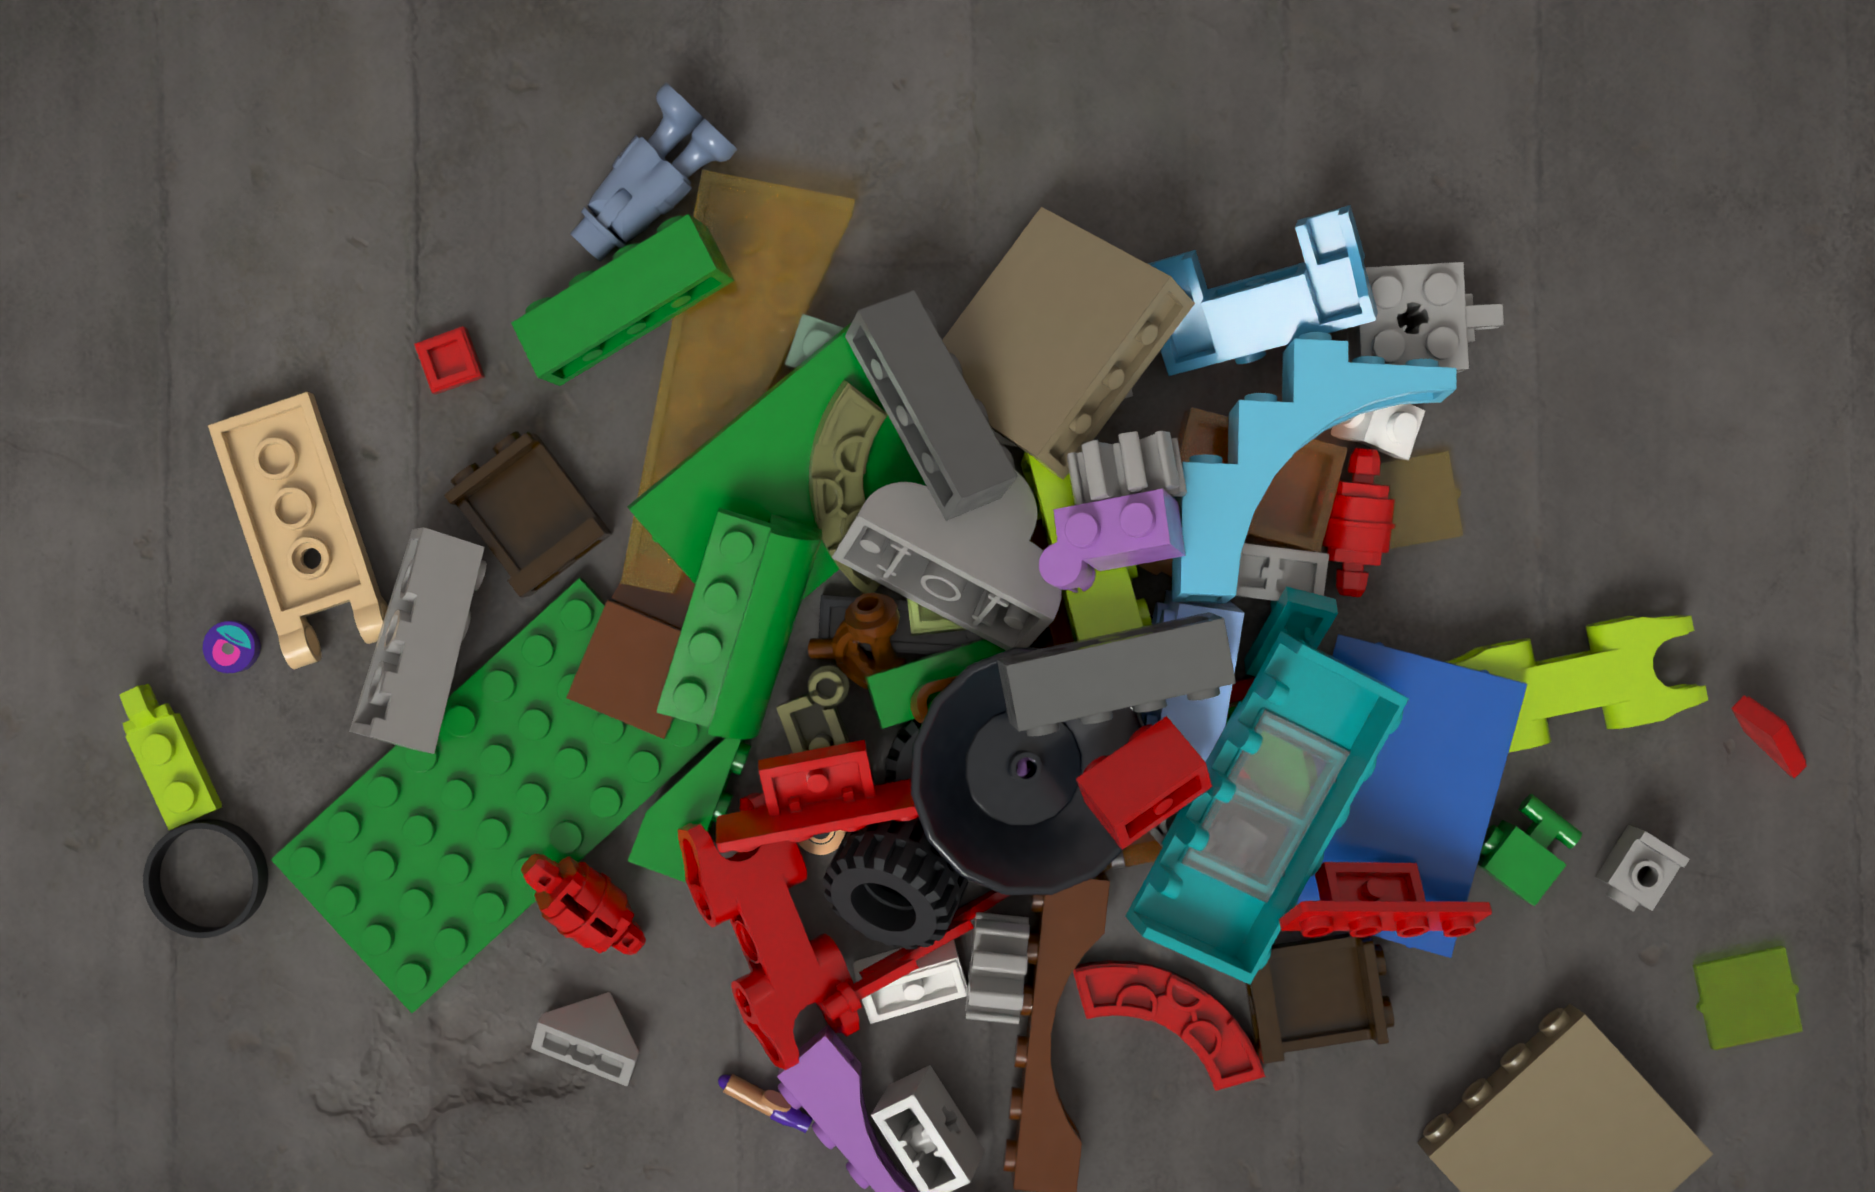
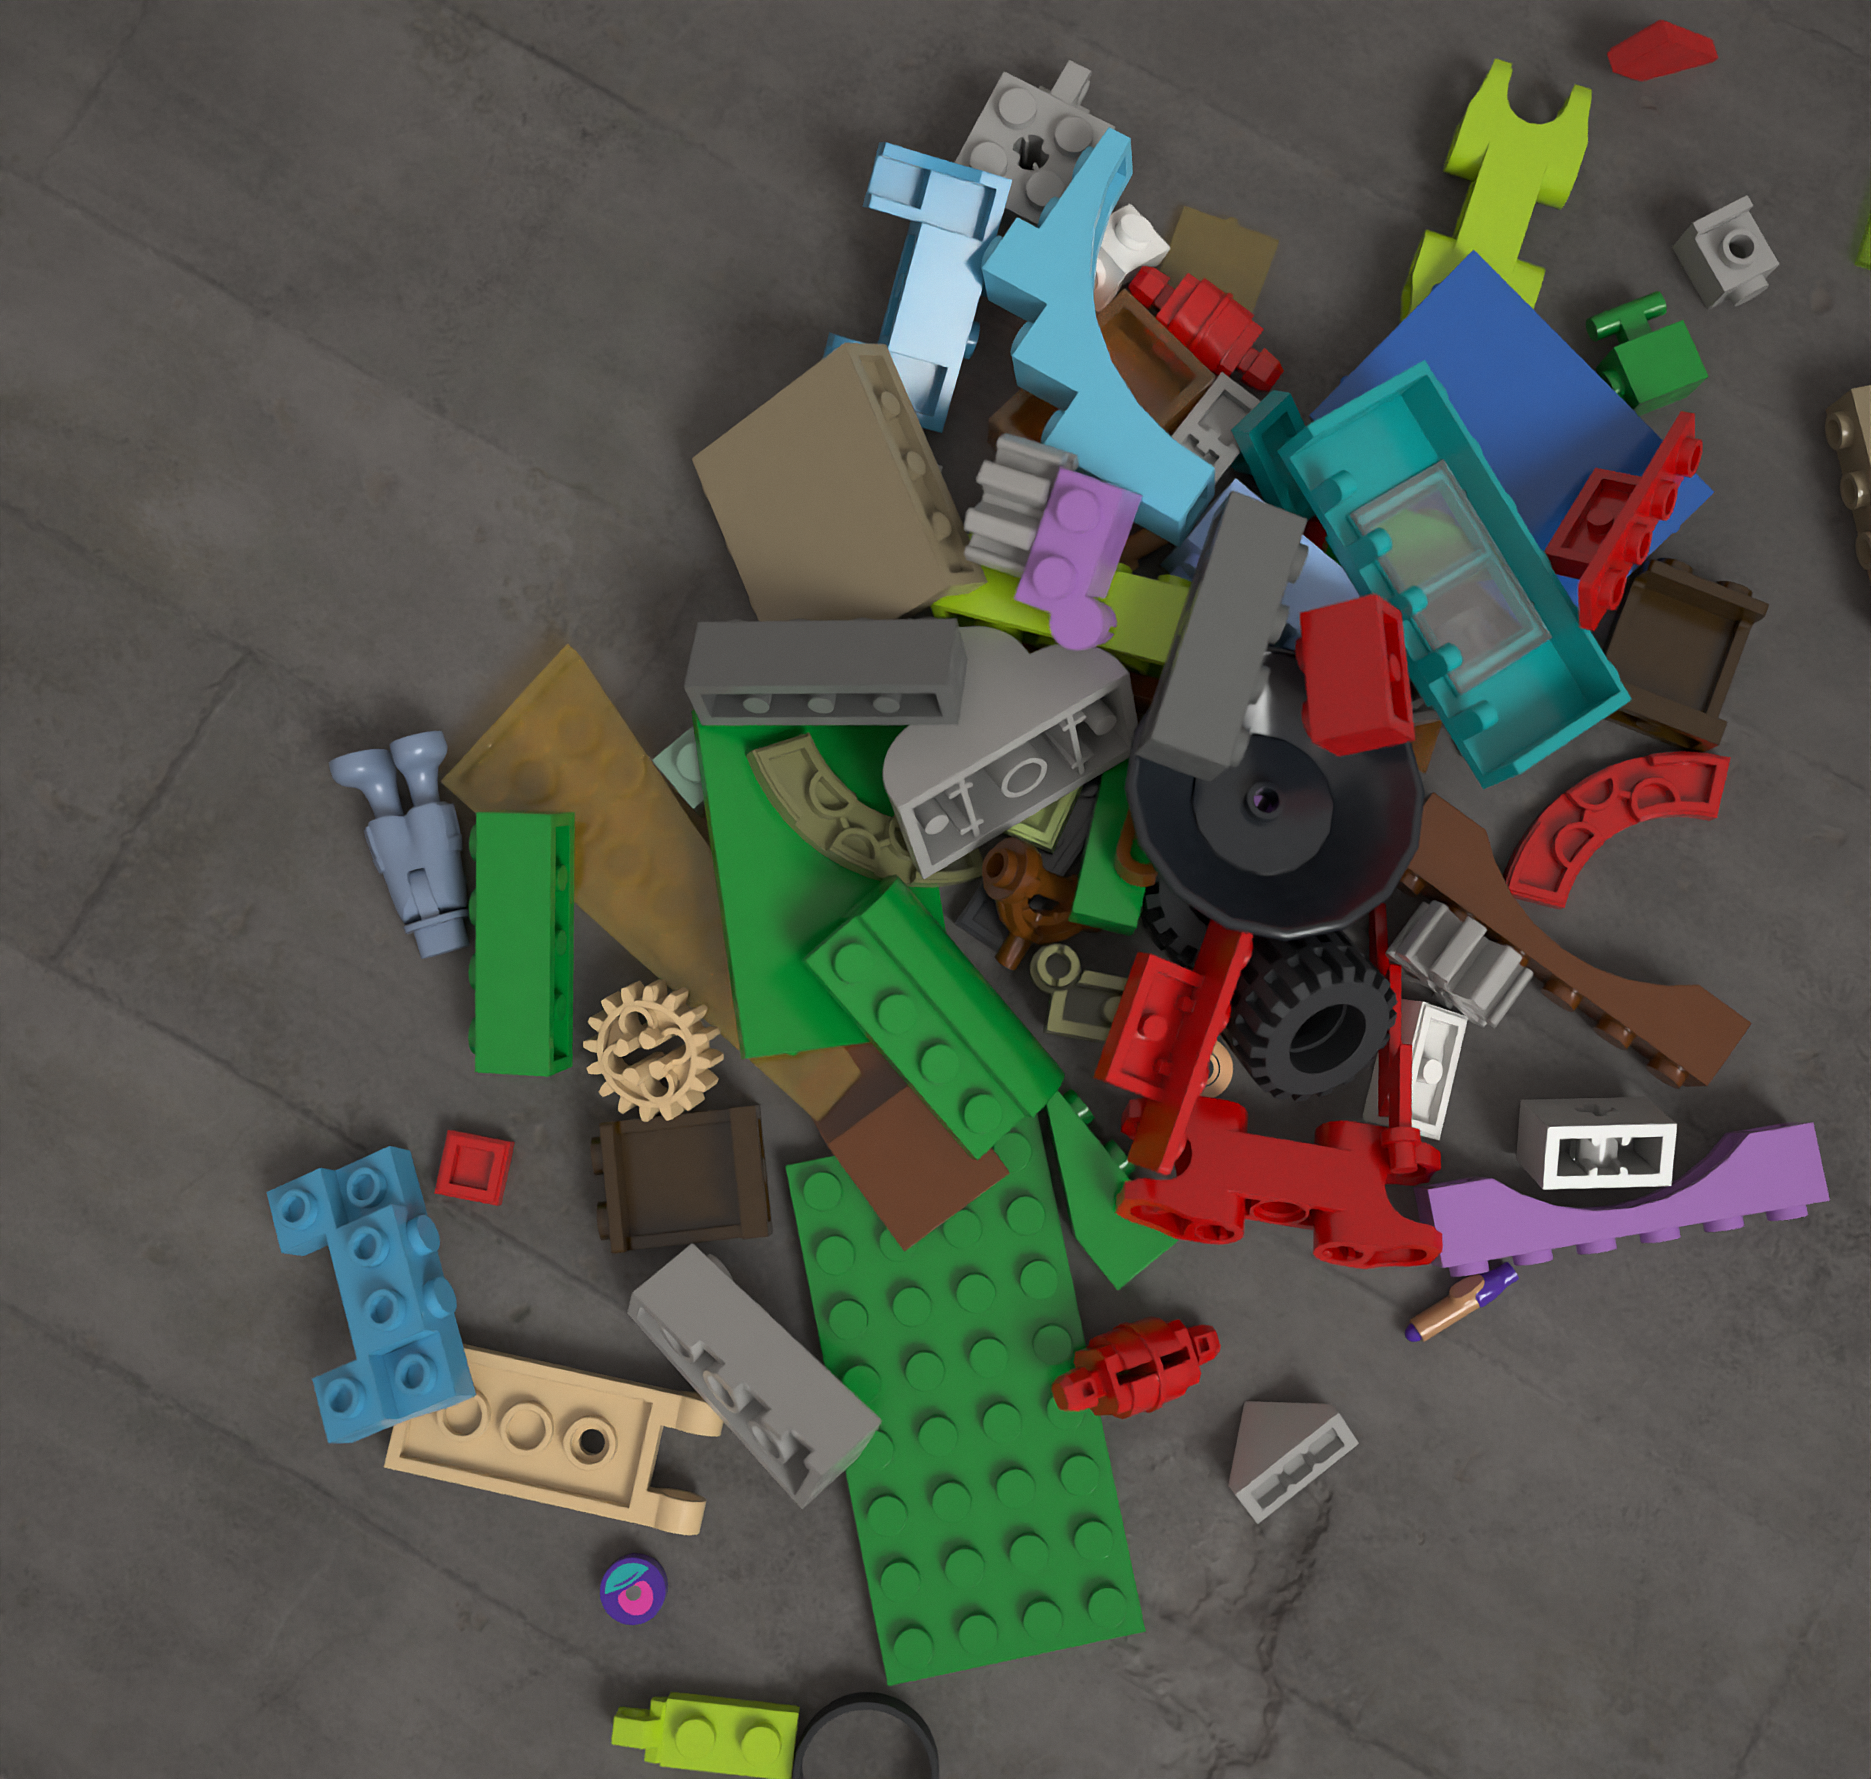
camera: 60 degrees left, 5 degrees down
(328, 354) = (389, 1289): none -> dark azure bracket
(600, 408) = (623, 1033): none -> tan gear

